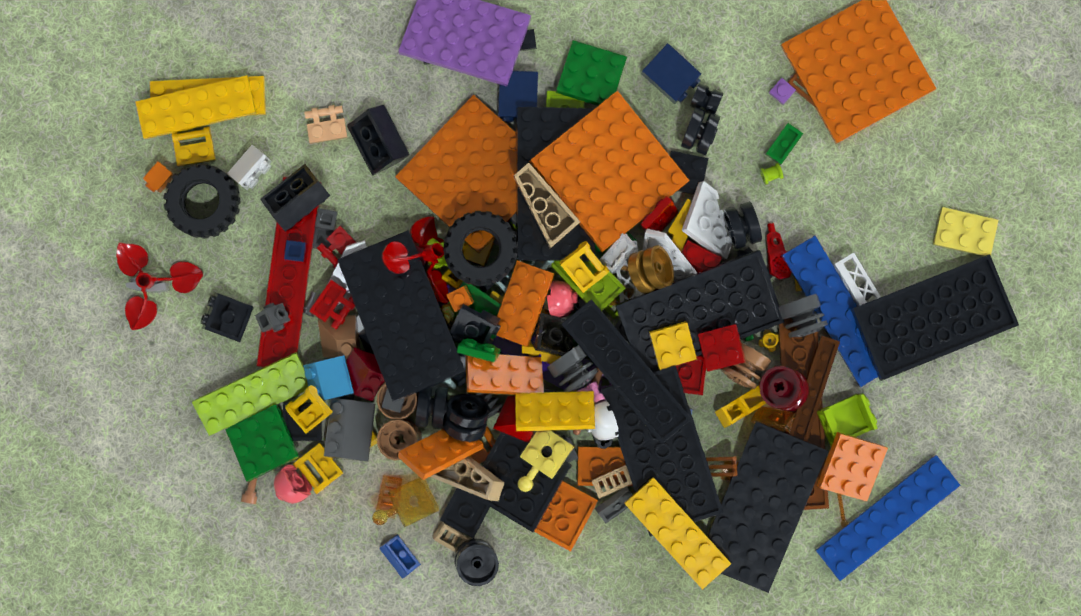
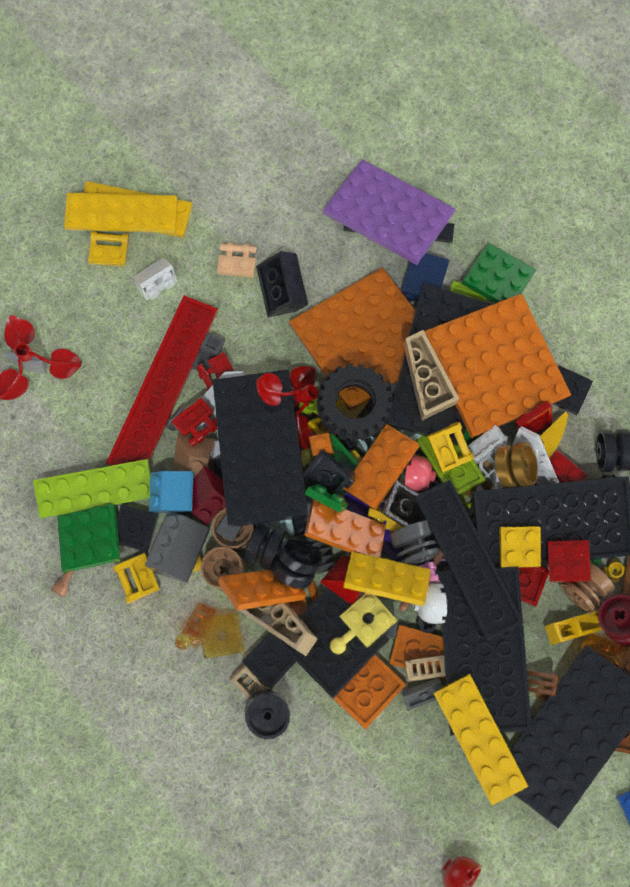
camera: 10 degrees right, 10 degrees down
(158, 177) = (67, 266): orange brick -> none
(179, 189) = (90, 276): black tyre -> none
(226, 317) = (91, 409): black plate -> none
(272, 317) = (134, 419): dark grey brick -> none
(291, 486) = (103, 587): coral cylinder -> none
(295, 197) = (189, 315): black slope -> none
(295, 251) = (174, 364): dark blue plate -> none
(313, 414) = (146, 521): yellow plate -> none
(399, 556) = (191, 688): blue slope -> none
(671, 74) = (575, 295): dark blue brick -> none
(701, 131) = (591, 351): black wheel -> none
(706, 99) = (603, 325): black wheel -> none
(707, 222) = (578, 438): white plate -> none

